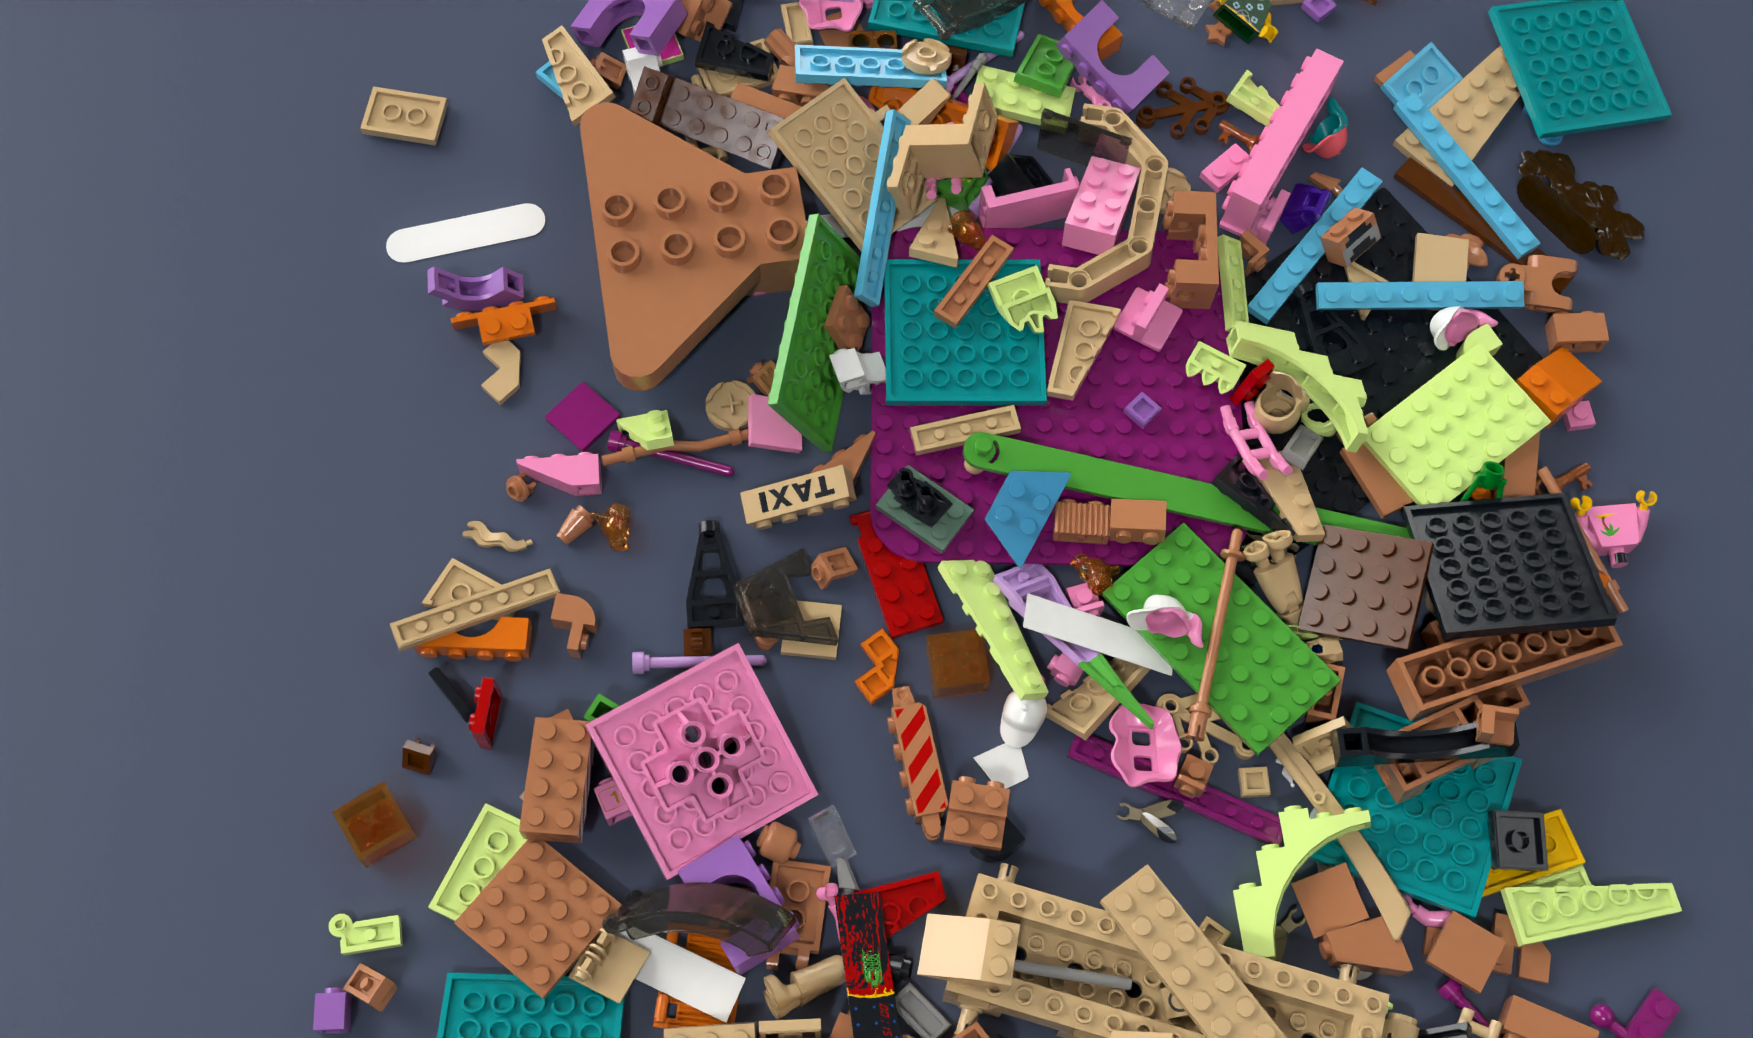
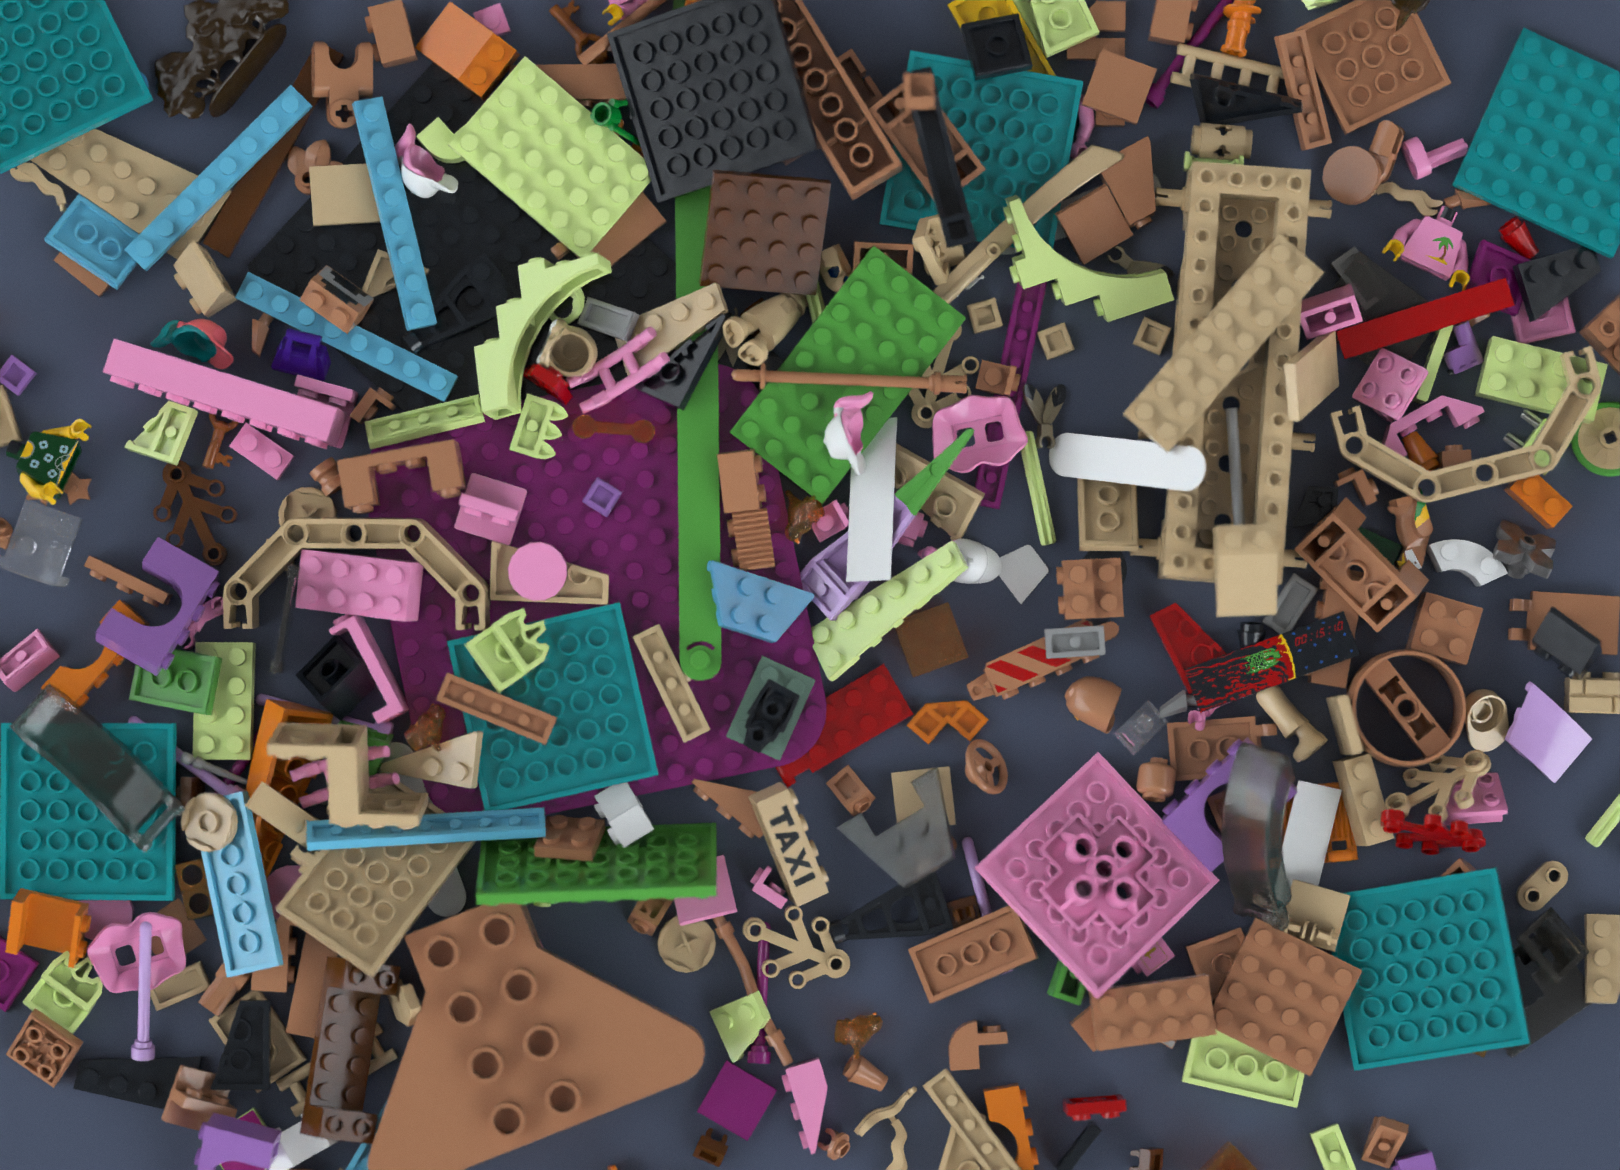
camera: 100 degrees left, 20 degrees up
(535, 534) = (884, 1112): none -> tan hair
(545, 384) = (711, 1150): none -> reddish brown tile
(594, 858) = (1215, 956): none -> nougat plate
(656, 634) = (972, 953): none -> nougat plate
(702, 493) = (800, 949): none -> tan plant
(743, 164) = (405, 1004): none -> tan tile
(761, 475) = (771, 892): none -> bright pink bracket
(825, 680) = (981, 769): none -> nougat piece
(868, 794) = (1093, 702): none -> nougat piece
(928, 787) = (1074, 642): none -> light grey plate
(1049, 851) = (1107, 516): none -> tan tile
(1081, 794) = (1038, 491): none -> yellowish green axle
(1087, 338) = (537, 571): none -> bright pink tile
(1094, 872) = (1127, 461): none -> white sticker
(1137, 48) = (127, 582): none -> nougat plate
(1208, 410) = (585, 426): none -> clear orange bar
(1219, 843) = (1055, 341): none -> tan tile
(1383, 147) = (203, 279): none -> tan slope
(1484, 48) = (31, 173): none -> tan hair

